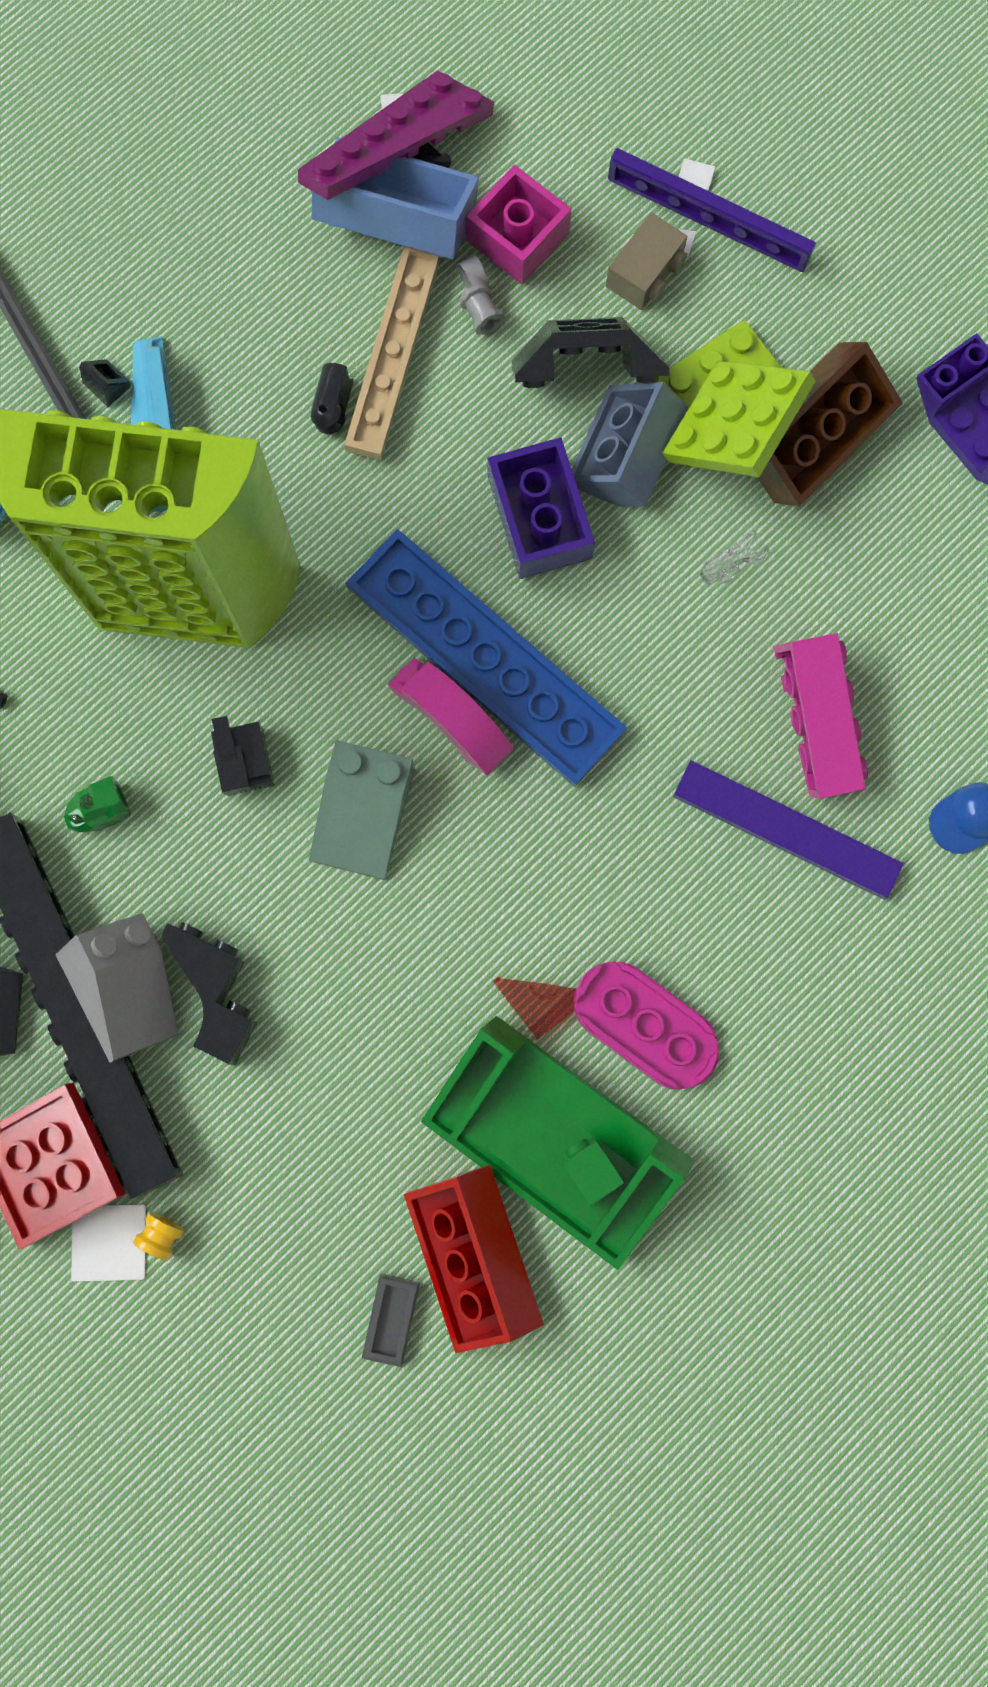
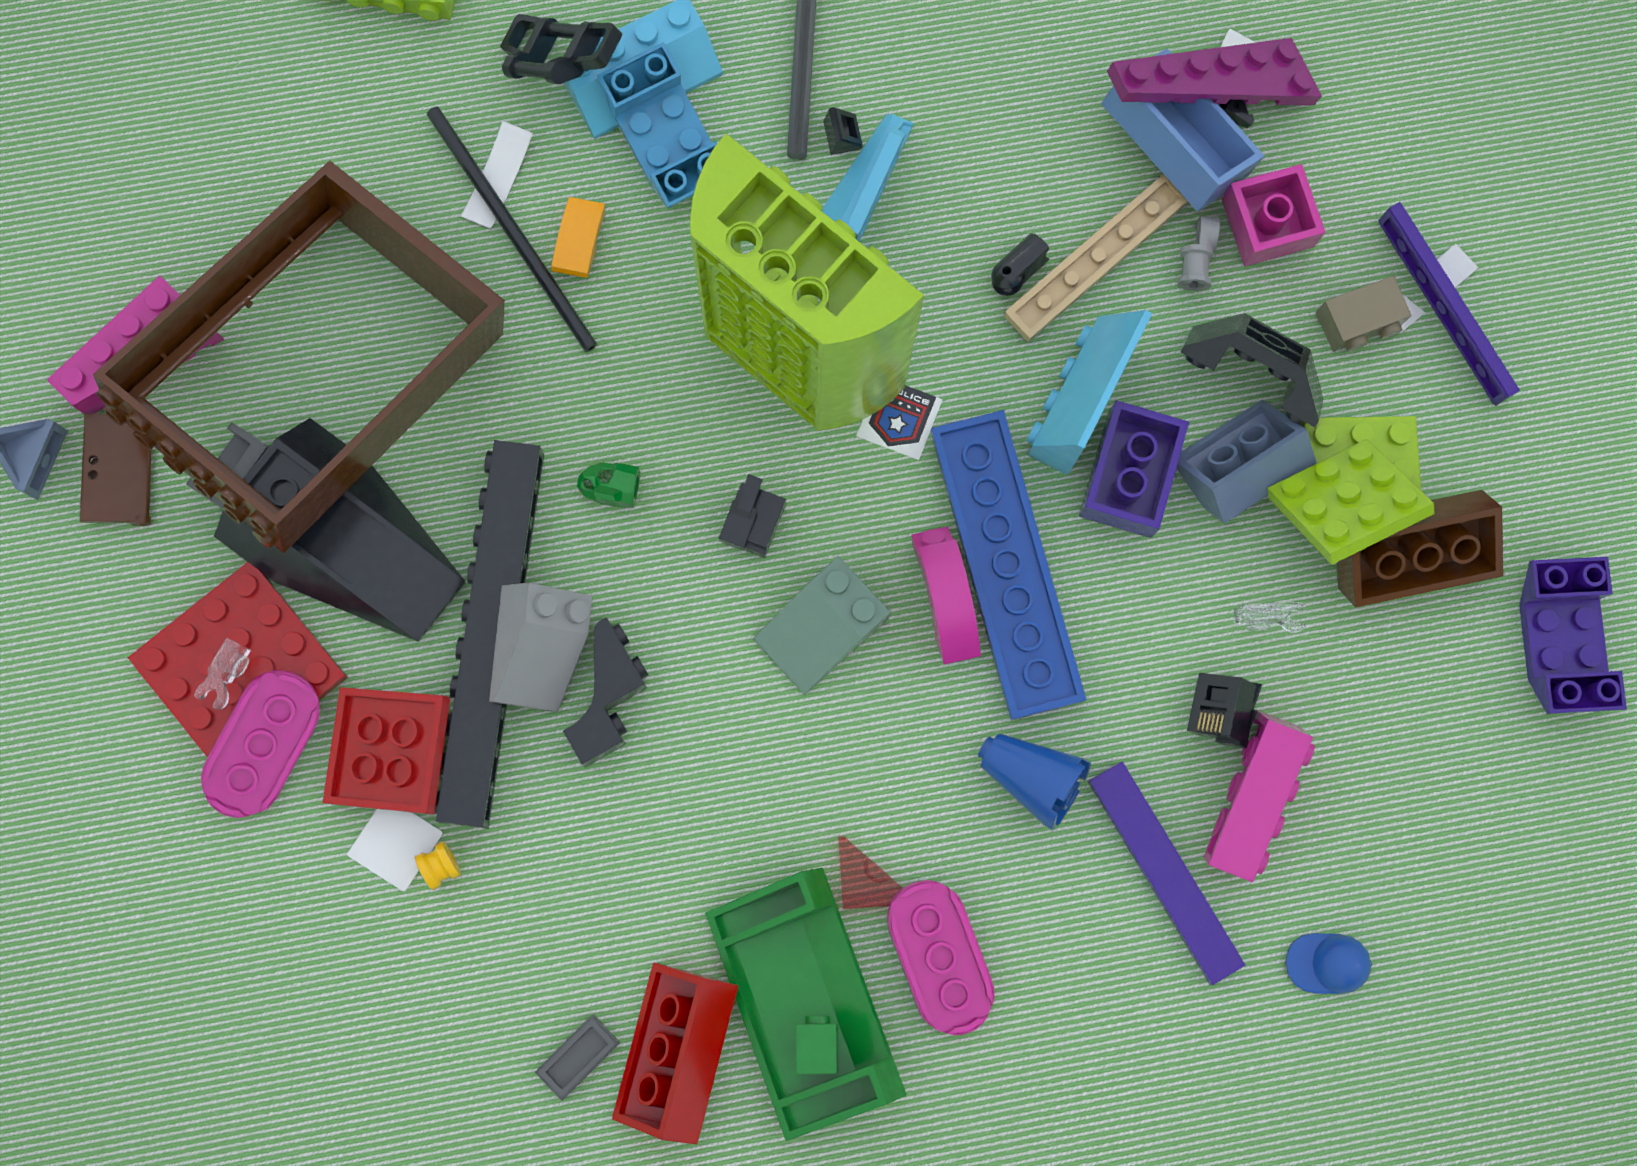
camera: 30 degrees right, 0 degrees up
(318, 595) = (903, 422): none -> sticker
(456, 464) = (1086, 388): none -> medium azure slope
(625, 819) = (1035, 775): none -> blue cone
(746, 661) = (1224, 709): none -> black piece

